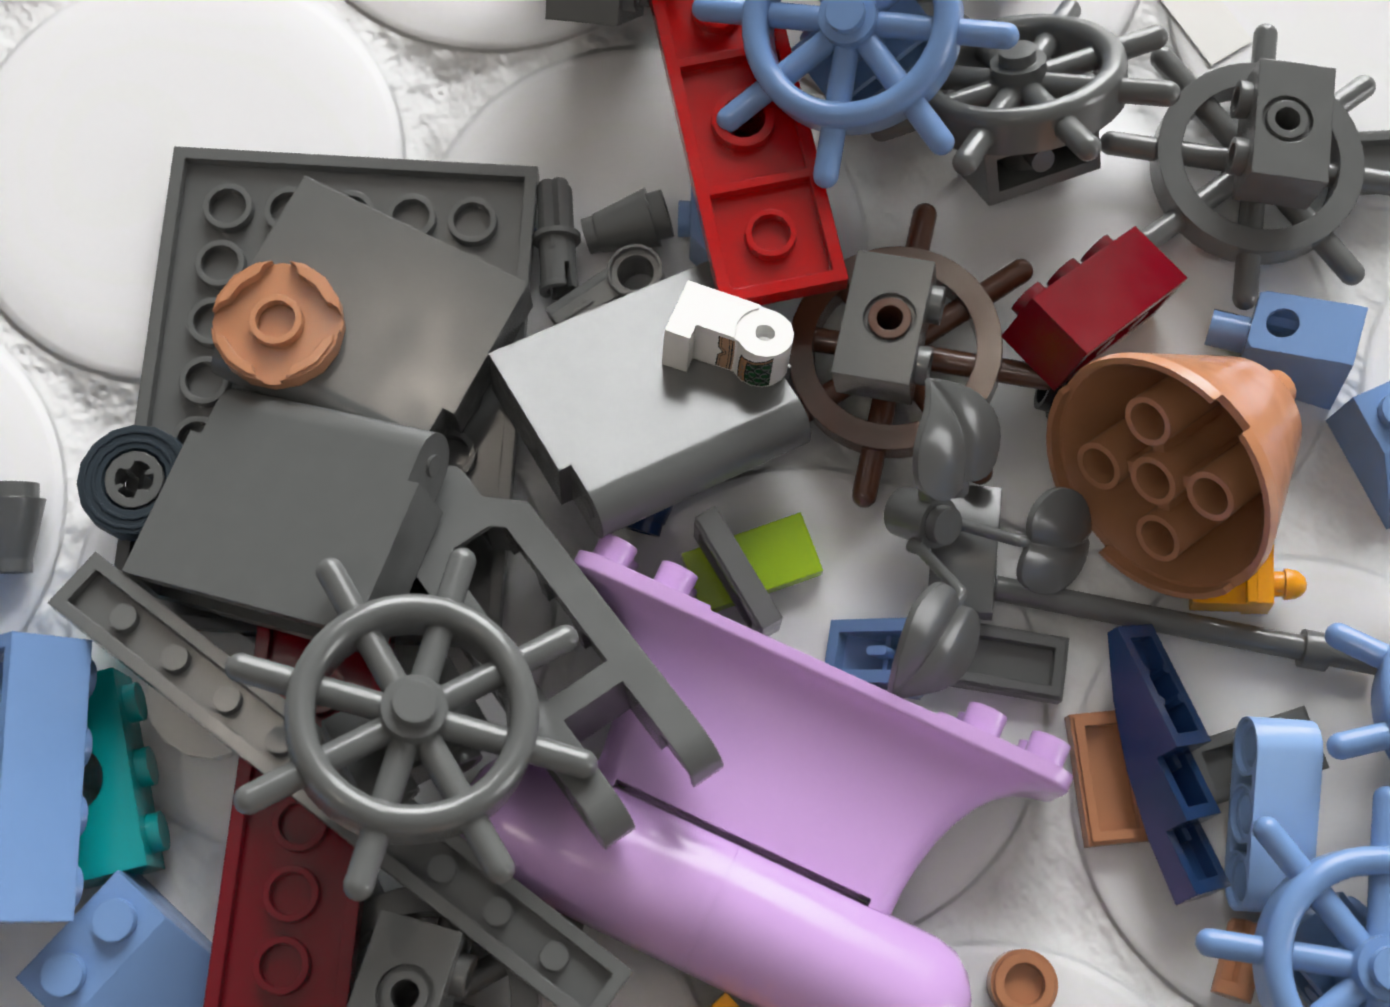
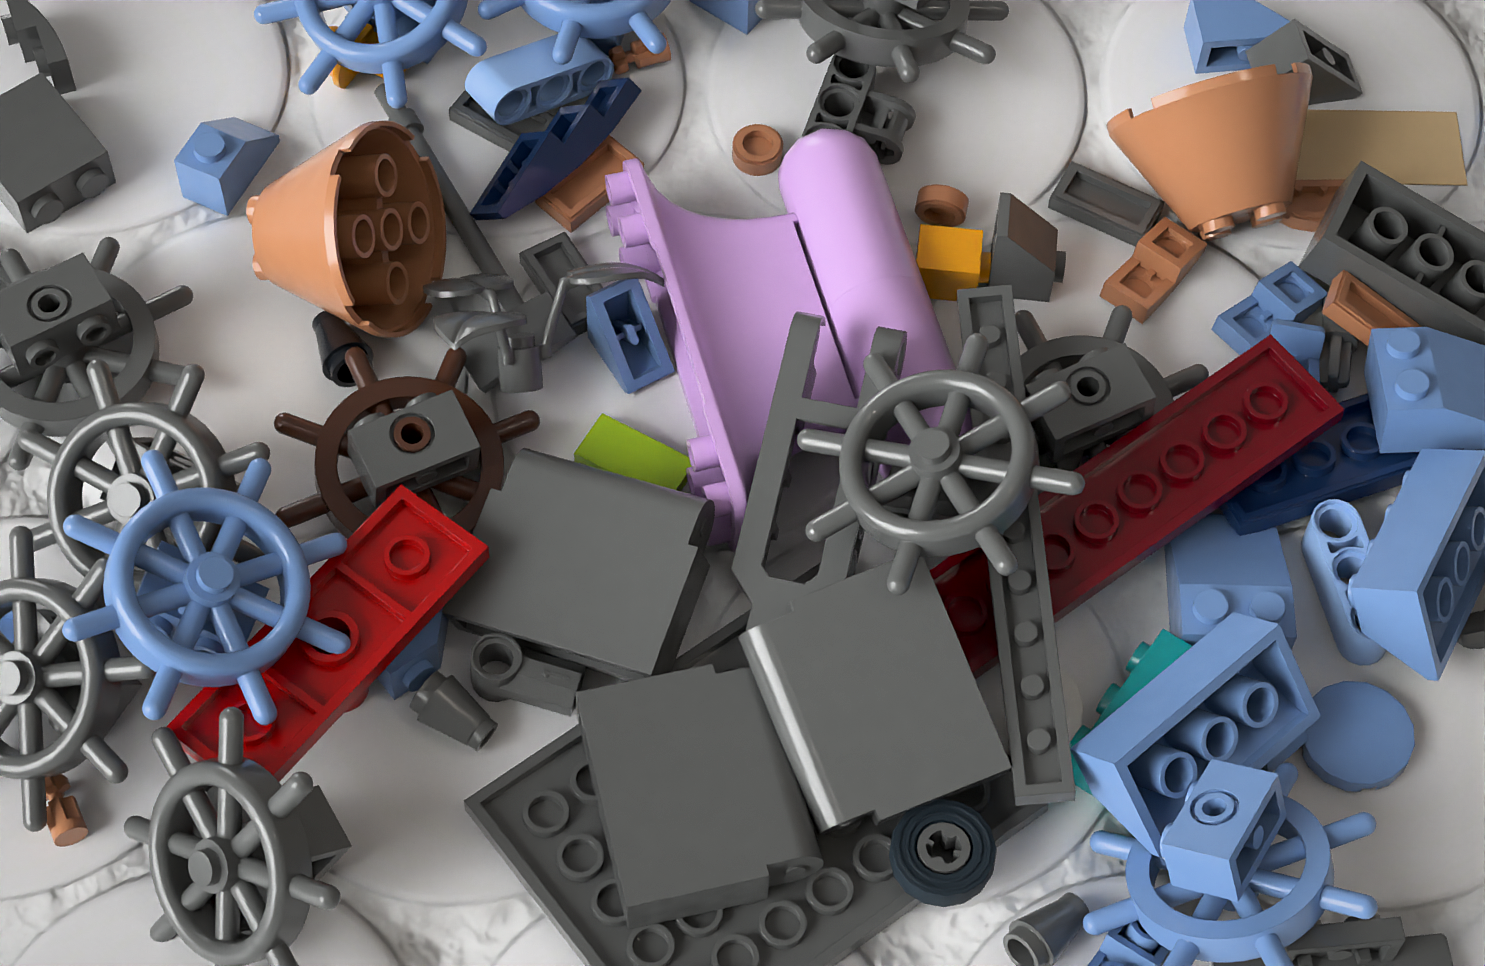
camera: 130 degrees left, 15 degrees down
(278, 324) = (755, 819): nougat tile -> none
(556, 238) = (508, 749): dark grey axle -> none
(728, 335) = (502, 518): white leg -> none
(736, 573) = (660, 434): dark grey tile -> none
(1091, 305) = (278, 359): dark red brick -> none
(1298, 335) = (201, 240): medium blue torso -> none

